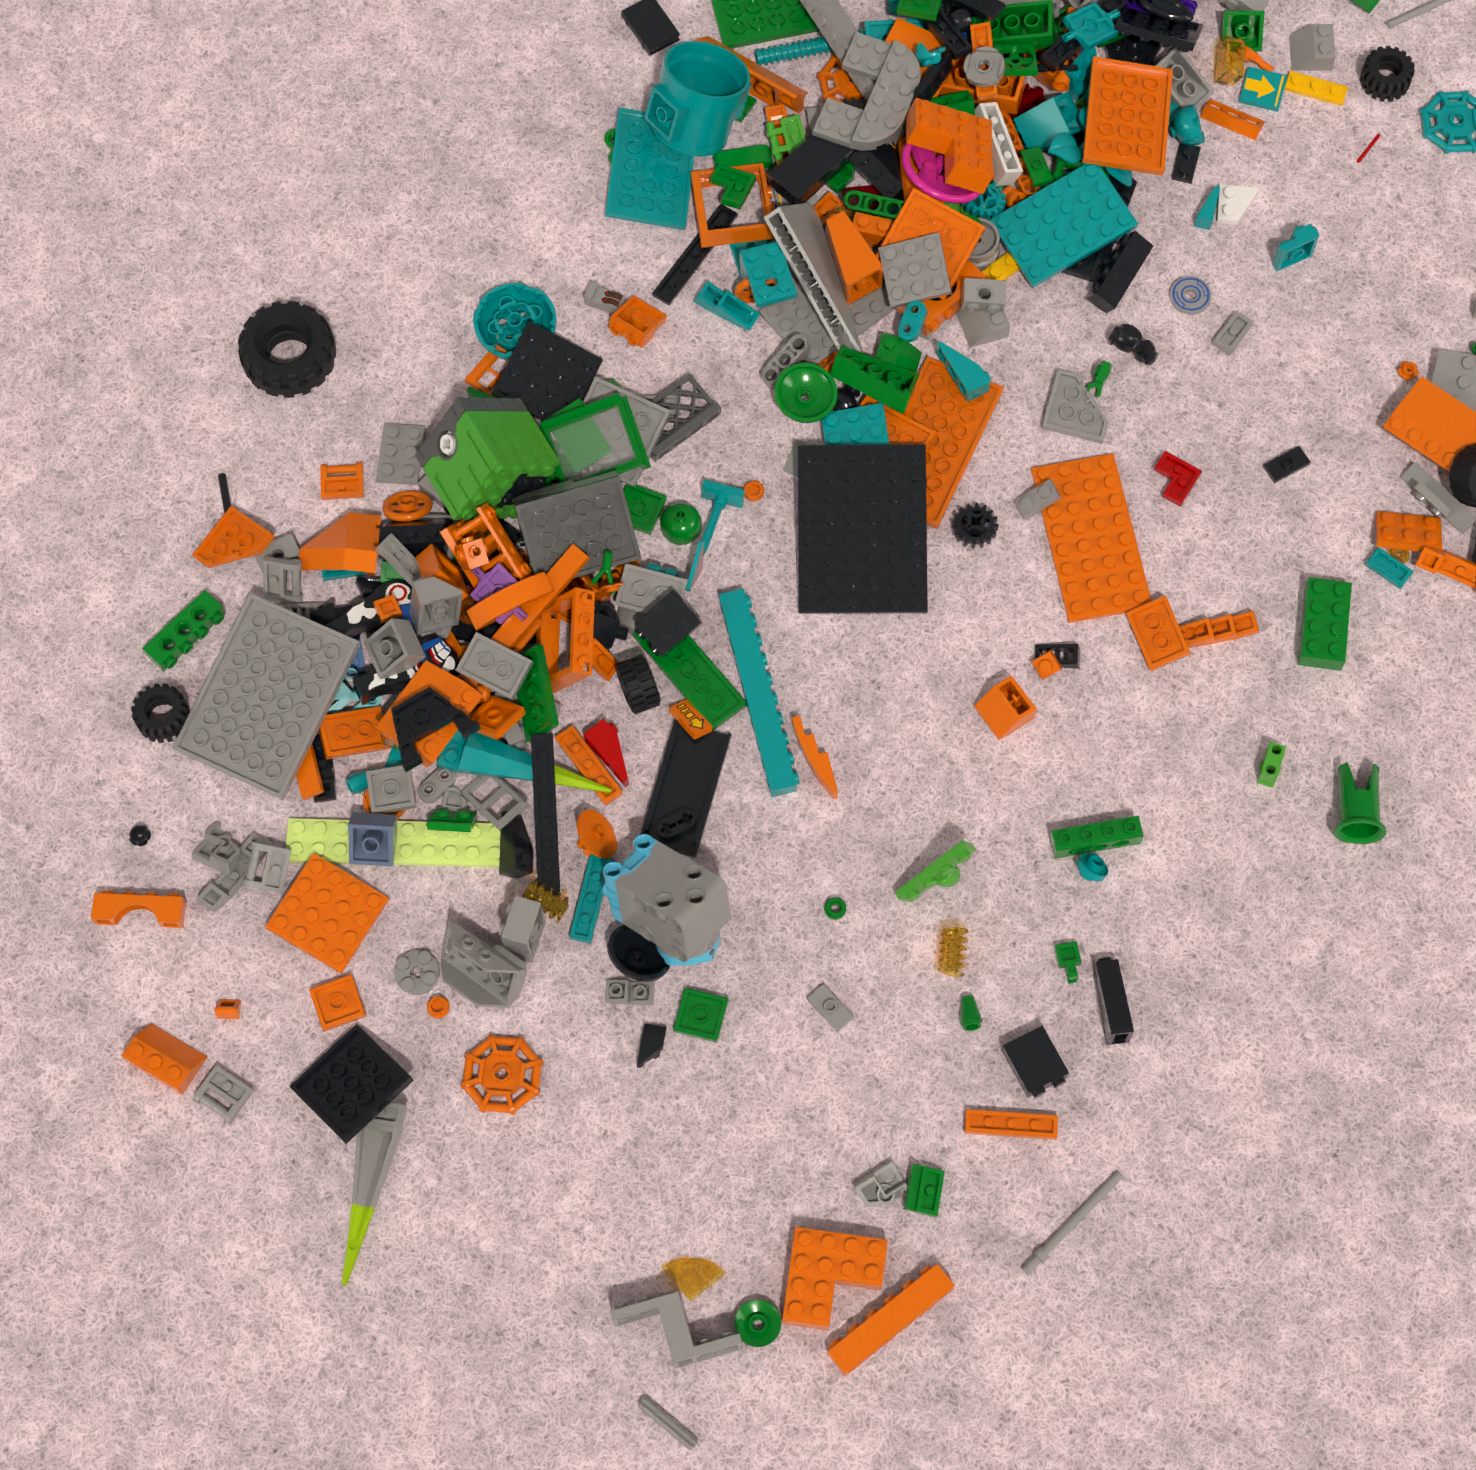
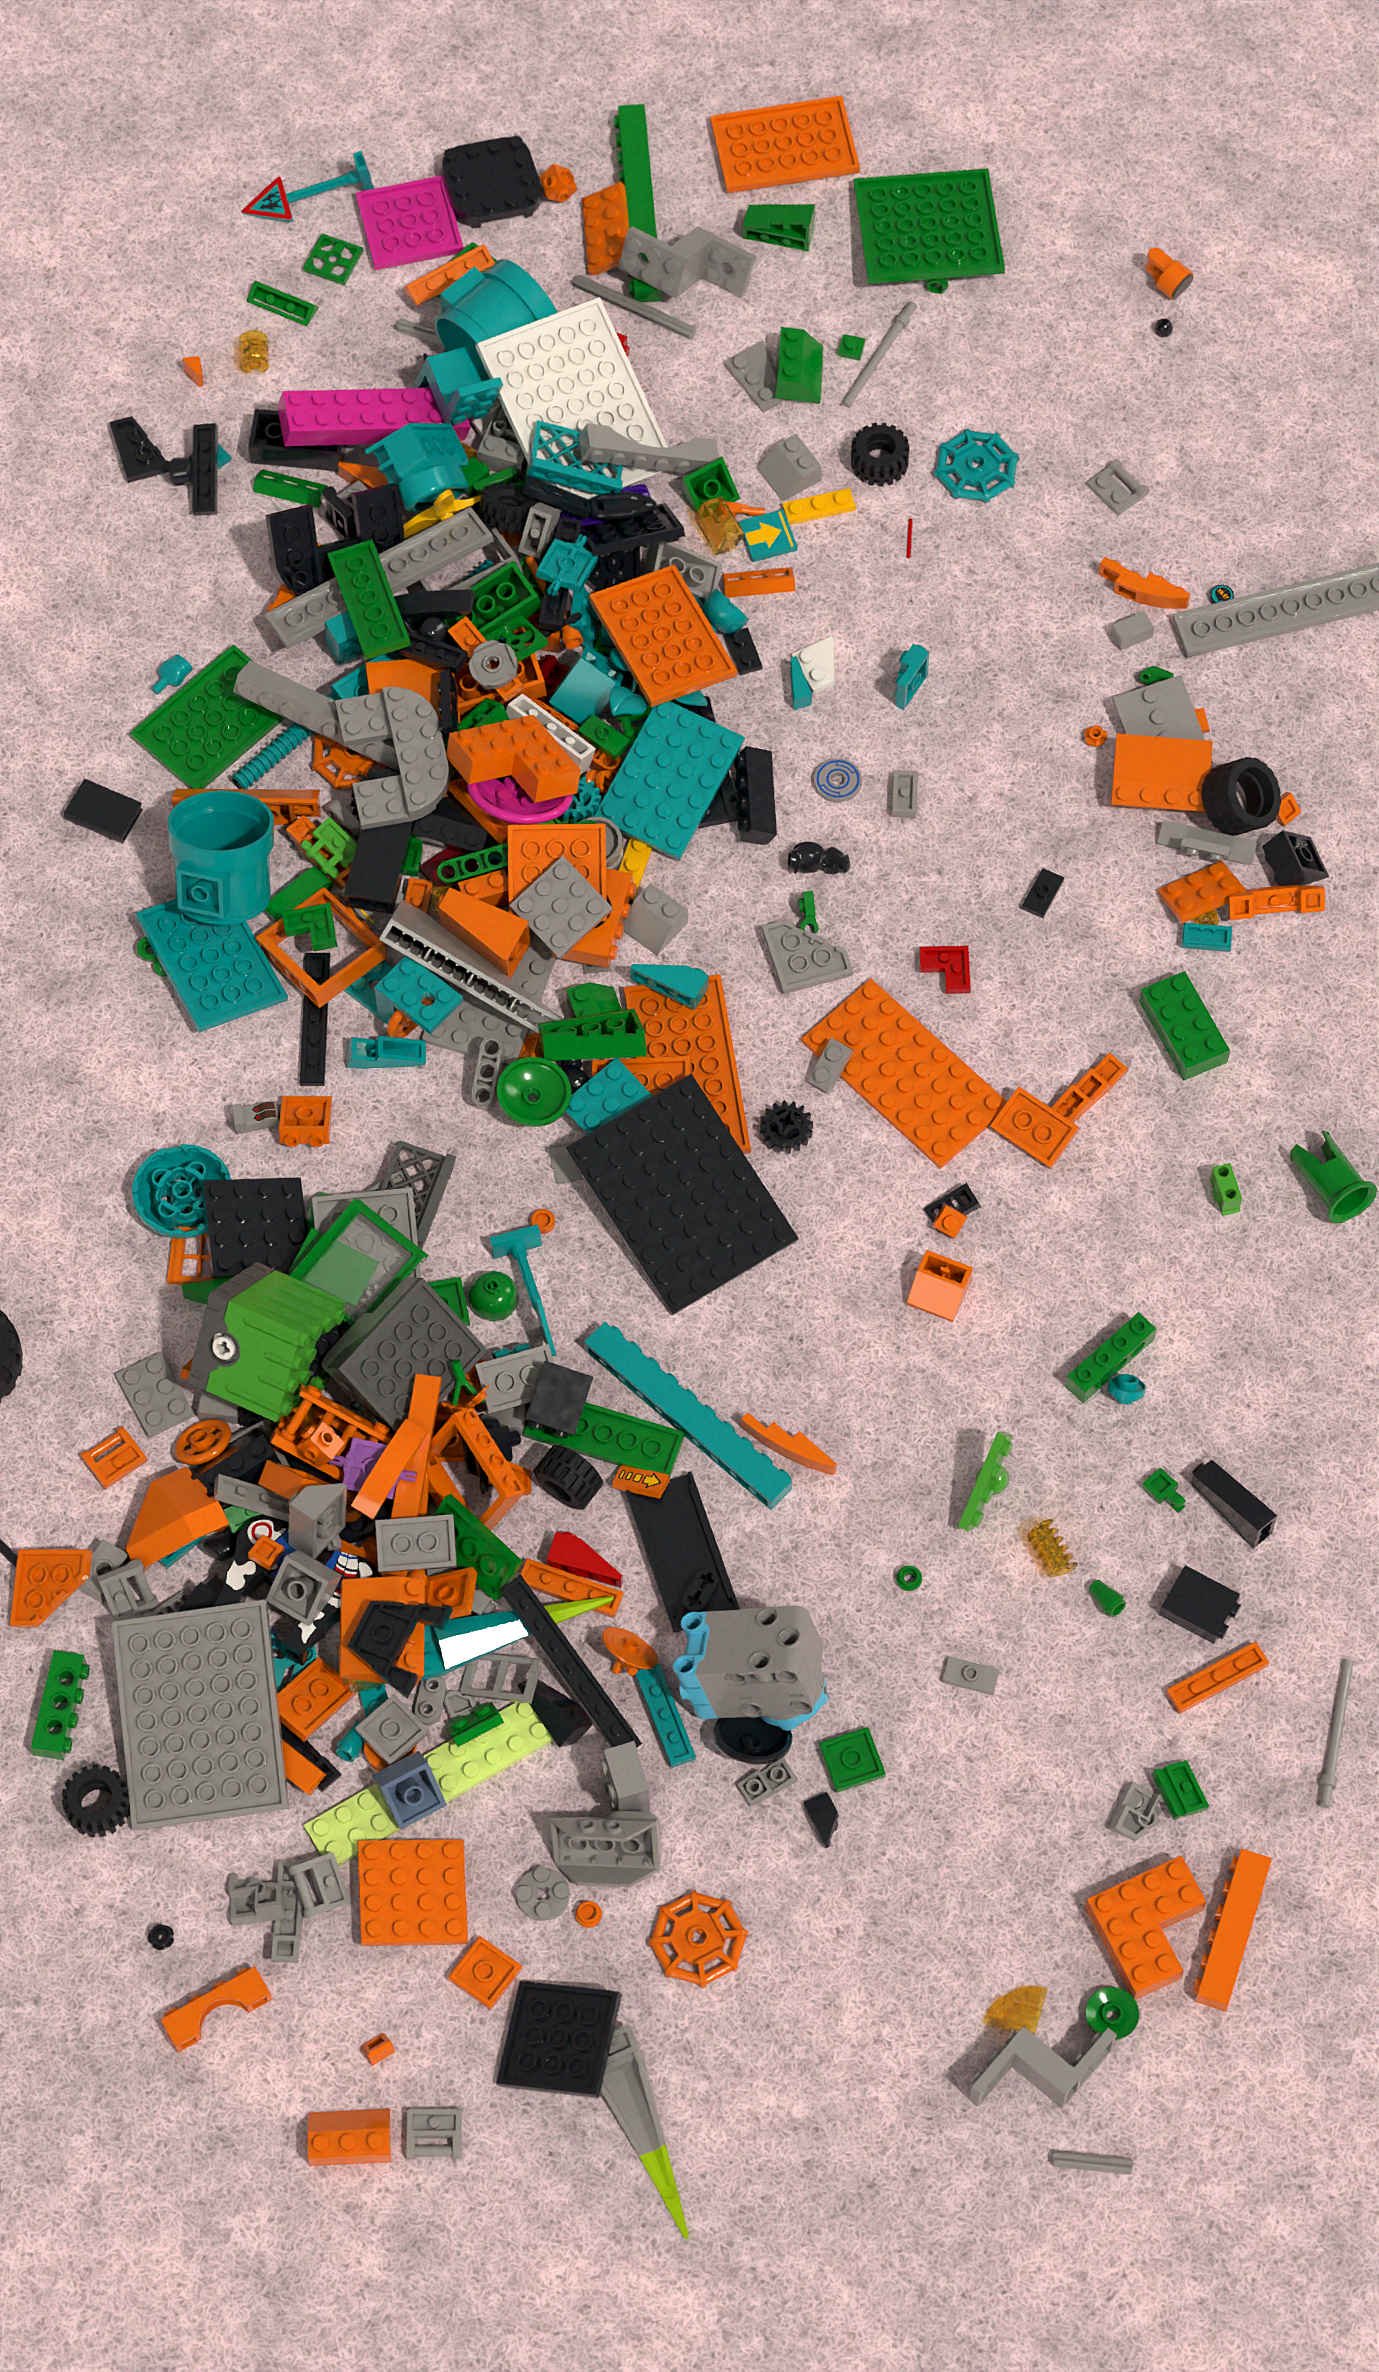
camera: 35 degrees left, 5 degrees down
(549, 902) = (643, 1739): clear yellow piece -> none
(912, 320) = (590, 959): teal plate -> none
(928, 57) = (427, 687): teal piece -> none
(993, 289) = (651, 883): light grey brick -> none

